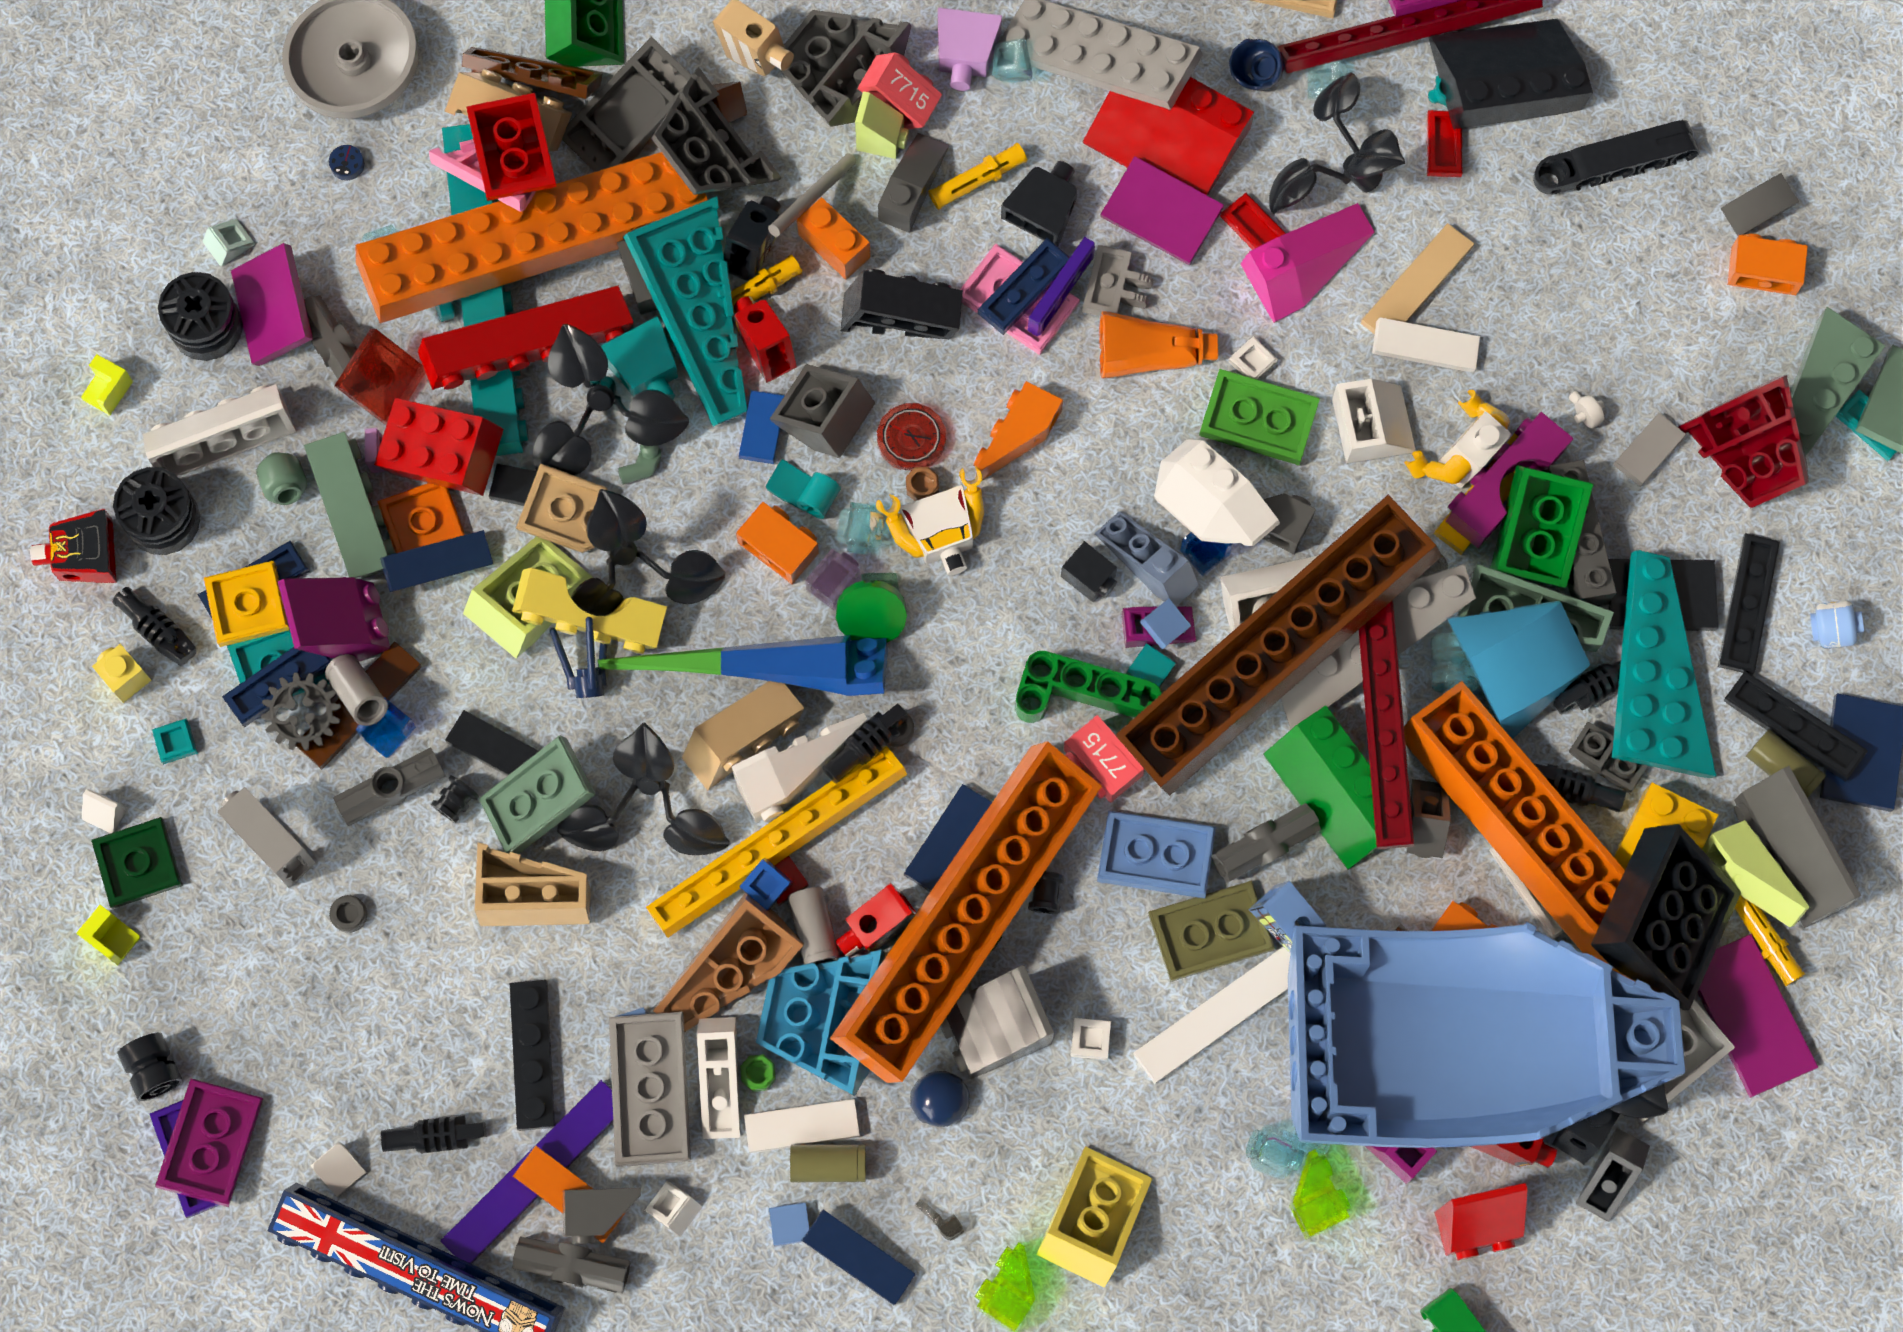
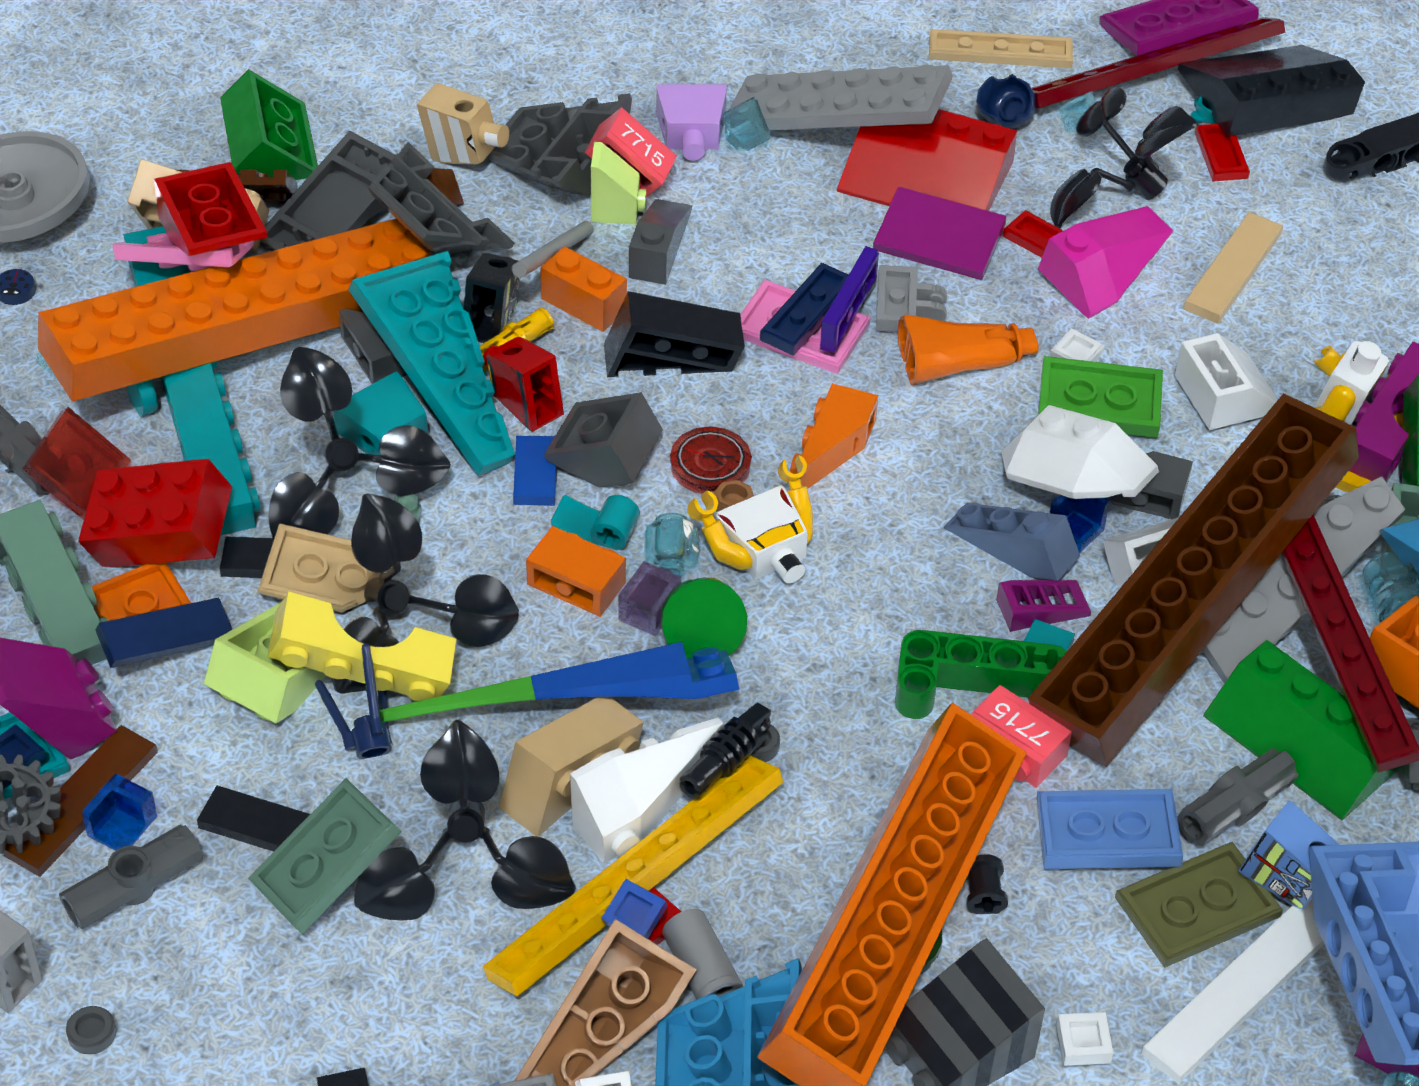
camera: 10 degrees left, 25 degrees down
(356, 690) = (80, 766): light grey pin -> none
(372, 443) = (73, 524): lavender tile -> none
(454, 799) = (217, 880): black bush -> none
(520, 337) = (217, 404): red brick -> none
(528, 892) = (330, 965): tan wedge -> none
(892, 915) = (785, 930): torso -> none
(947, 837) = (845, 845): dark blue tile -> none
(988, 170) = (763, 205): yellow pin -> none
(1042, 202) = (806, 236): black torso -> none
(1089, 572) = (950, 557): black brick -> none
(1165, 623) = (1053, 591): medium blue tile -> none
(1426, 344) = (1262, 313): white tile -> none

